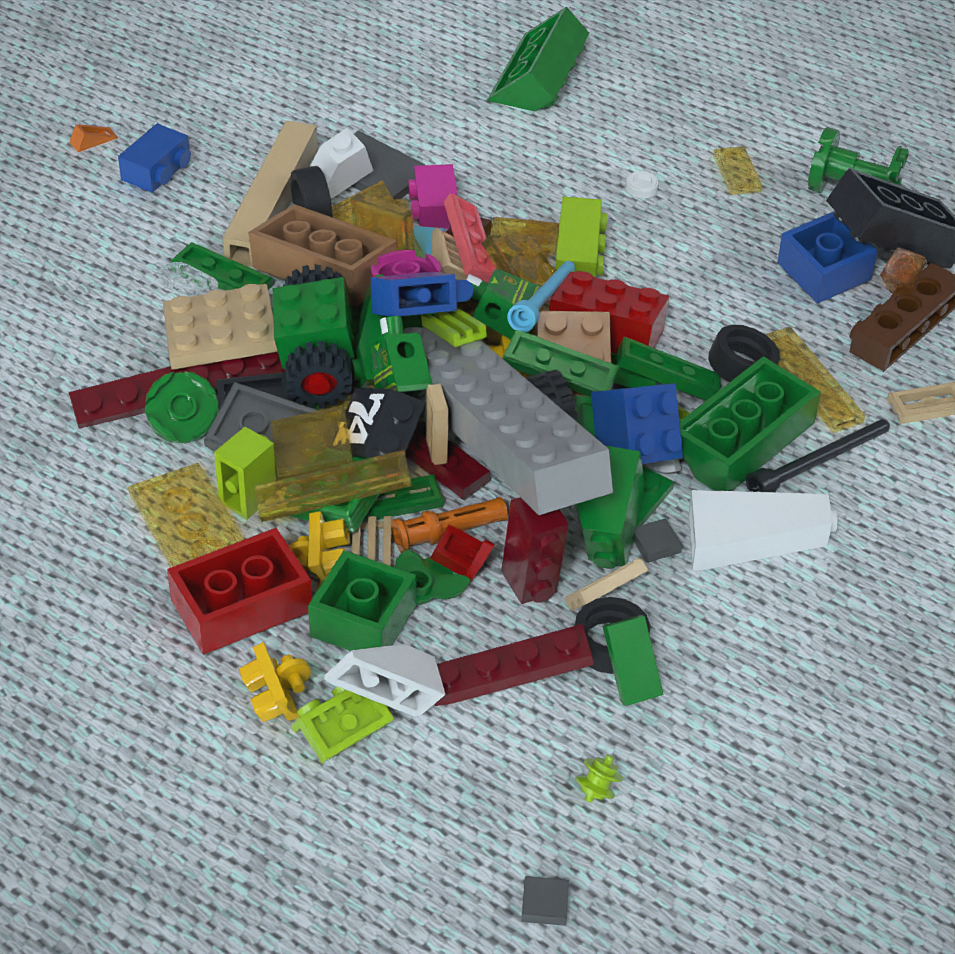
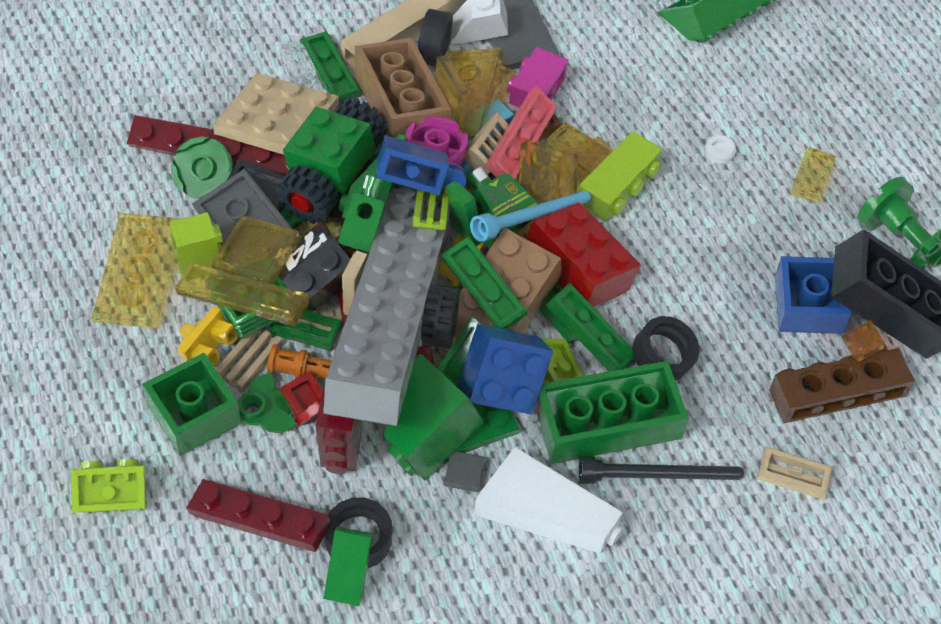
camera: 30 degrees right, 10 degrees up
(239, 590) = (116, 341): red brick -> none
(279, 679) = (89, 430): yellow hips -> none
(392, 676) = (163, 478): white slope -> none
(490, 309) = (462, 209): none -> green tile
(606, 584) = (389, 488): tan tile -> none
(835, 405) = (712, 399): clear yellow tile -> none

